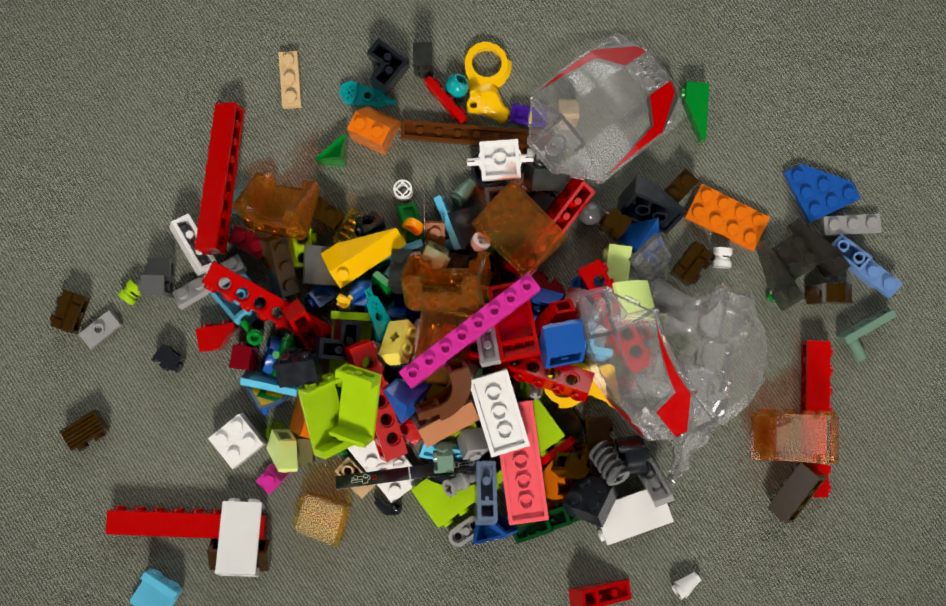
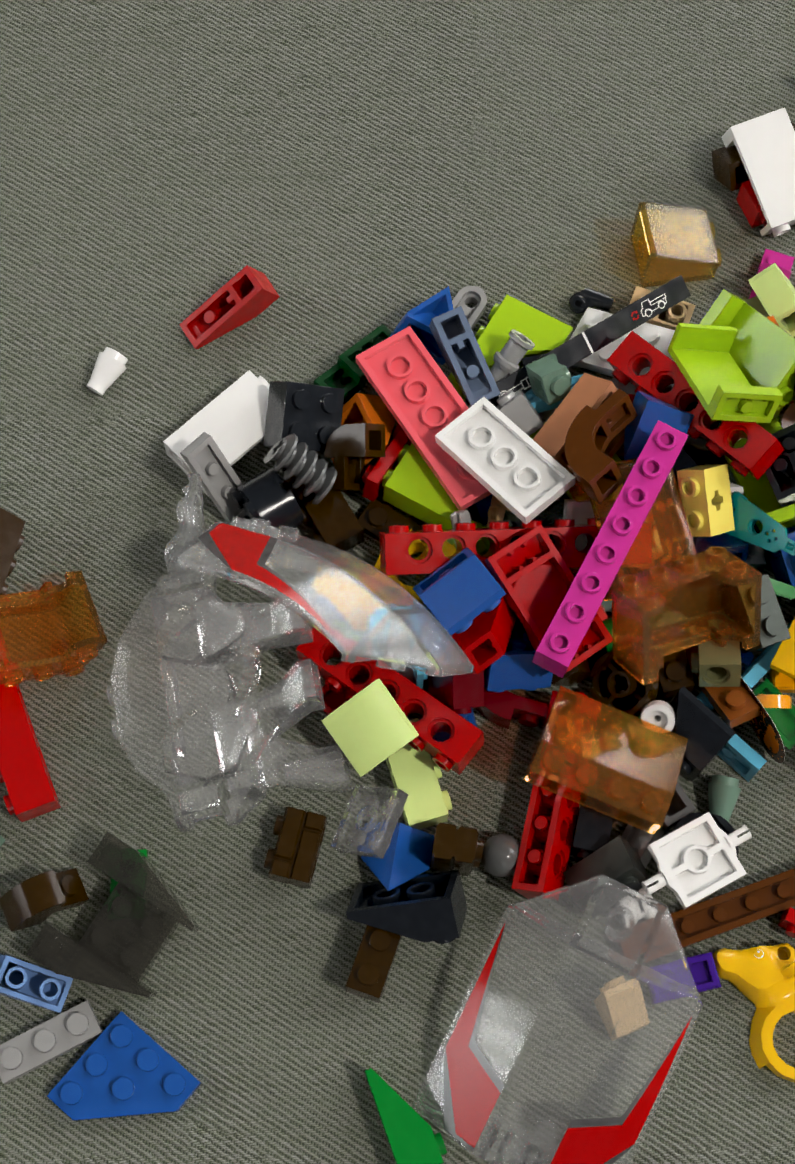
camera: 155 degrees right, 15 degrees down
(488, 349) = (568, 537): light grey plate -> none
(722, 257) = (249, 880): white wheel -> none
(727, 217) = (268, 957): orange plate -> none

